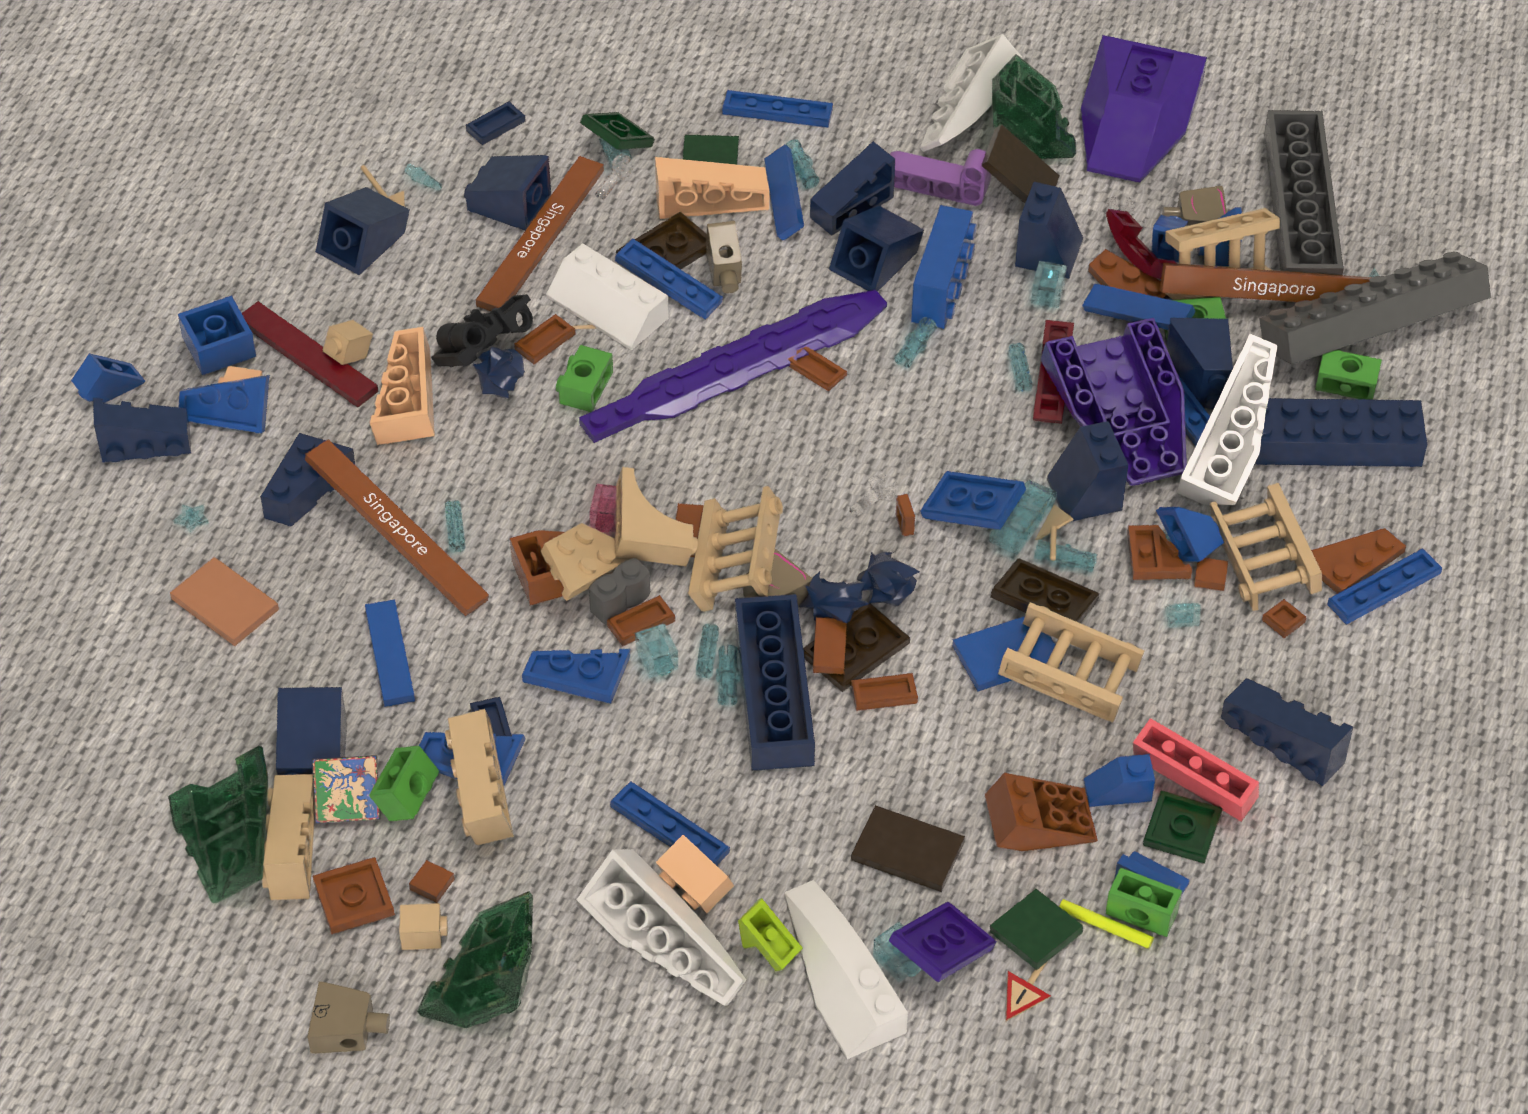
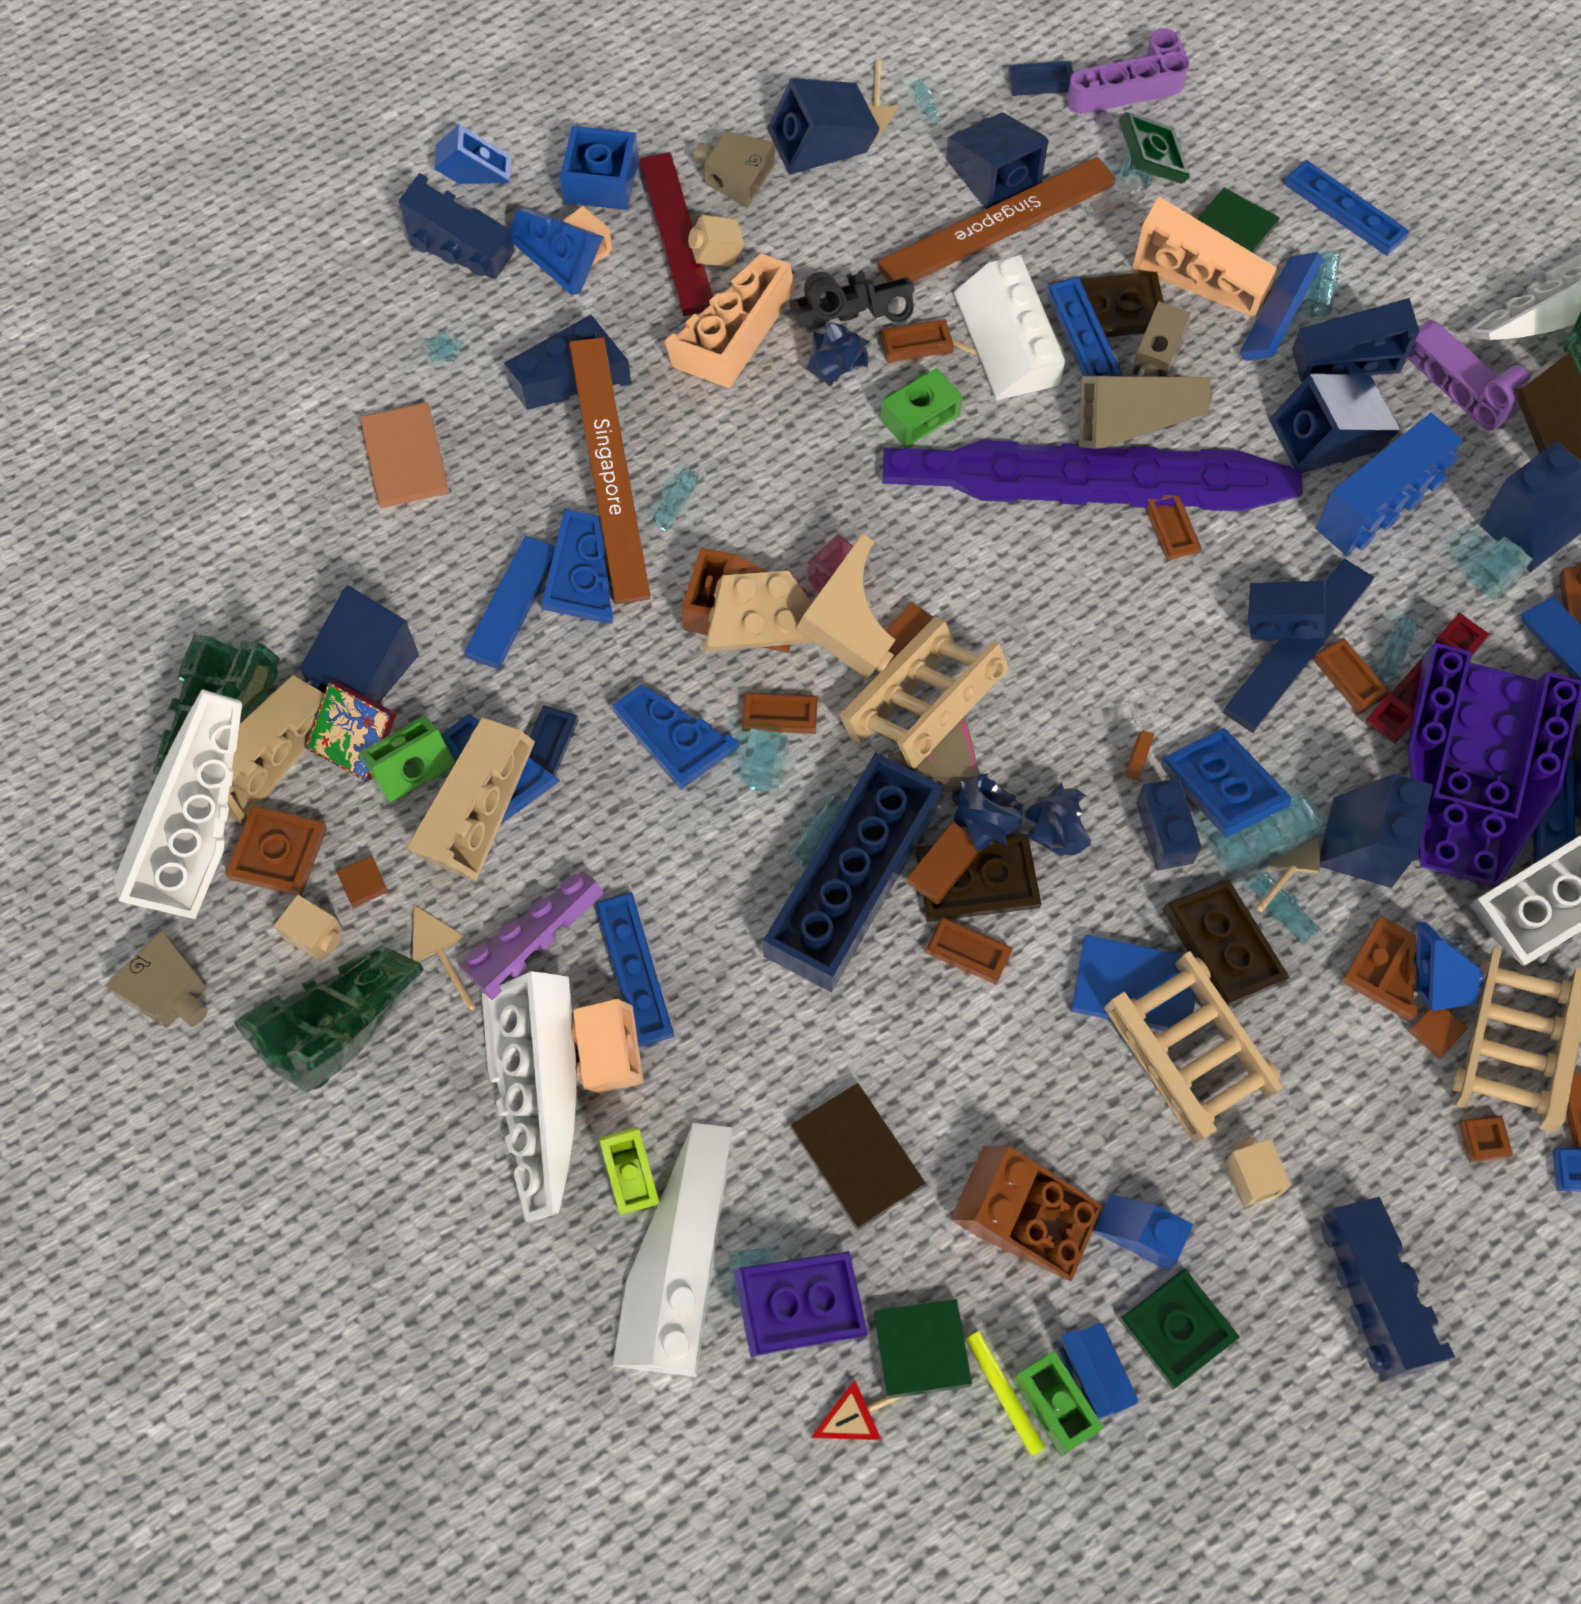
camera: 35 degrees right, 15 degrees up
(283, 898) = (185, 814): none -> white wedge
(317, 286) = (737, 165): none -> dark tan torso
(422, 606) = (577, 573): none -> blue wing
(513, 885) = (432, 937): none -> tan piece
(578, 81) = (1134, 80): none -> medium lavender beam
(580, 850) = (516, 940): none -> medium lavender wing
(620, 590) = (772, 668): dark grey brick -> none
(707, 651) = (819, 789): clear light blue axle -> none
(736, 302) = (1132, 406): none -> dark tan slope
(915, 342) = (1300, 555): clear light blue pin -> none
(935, 376) = (1287, 610): none -> dark blue brick
(955, 398) = (1291, 656): none -> dark blue tile
(956, 544) = (1168, 824): none -> dark blue brick
(1003, 398) = (1351, 675): none -> dark orange tile
(1164, 707) = (1257, 1171): none -> tan brick
(1183, 614) = (1369, 1060): clear light blue slope -> none
(1197, 770) = (1238, 1274): coral brick -> none

